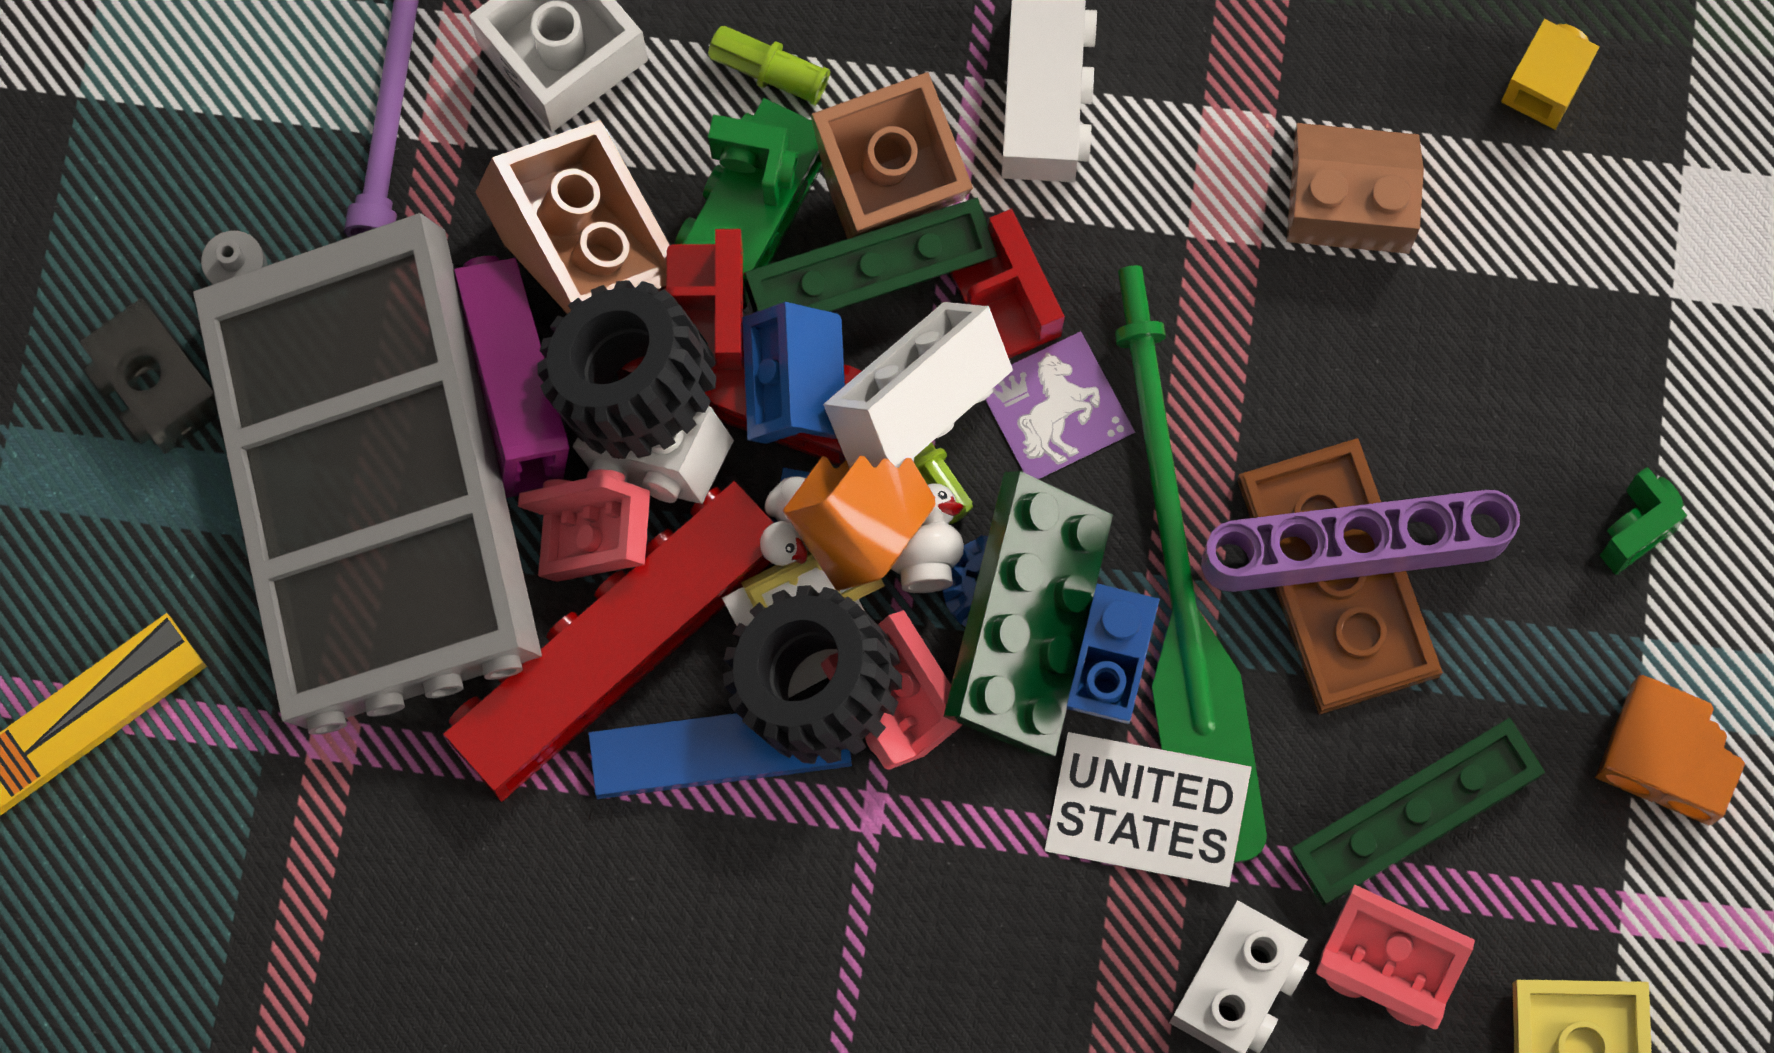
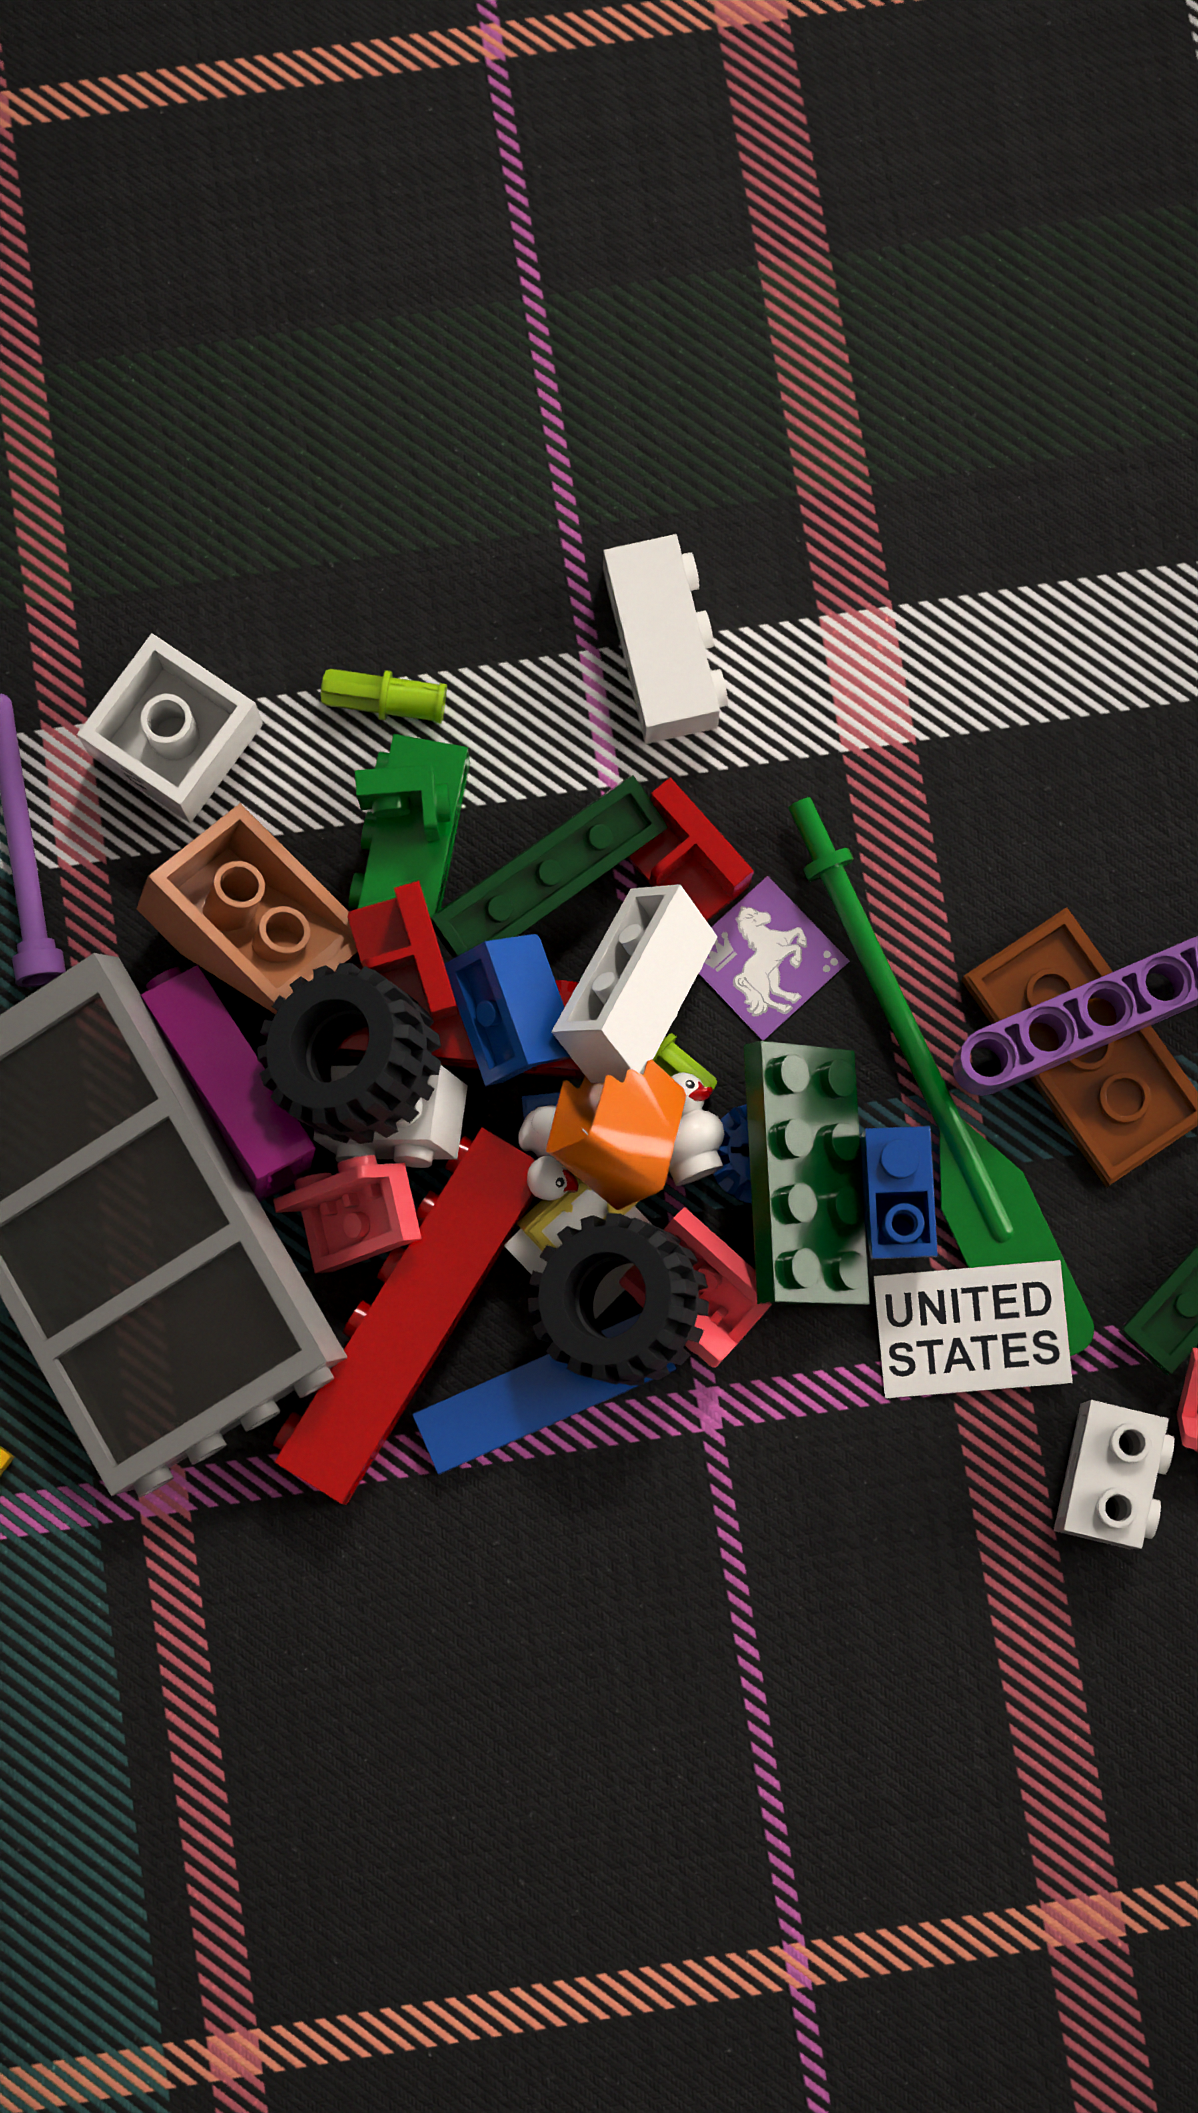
camera: 20 degrees left, 5 degrees up
(889, 156) = (535, 758): nougat slope -> none
(1355, 188) = (992, 658): nougat slope -> none
(1550, 73) = (1147, 492): yellow brick -> none

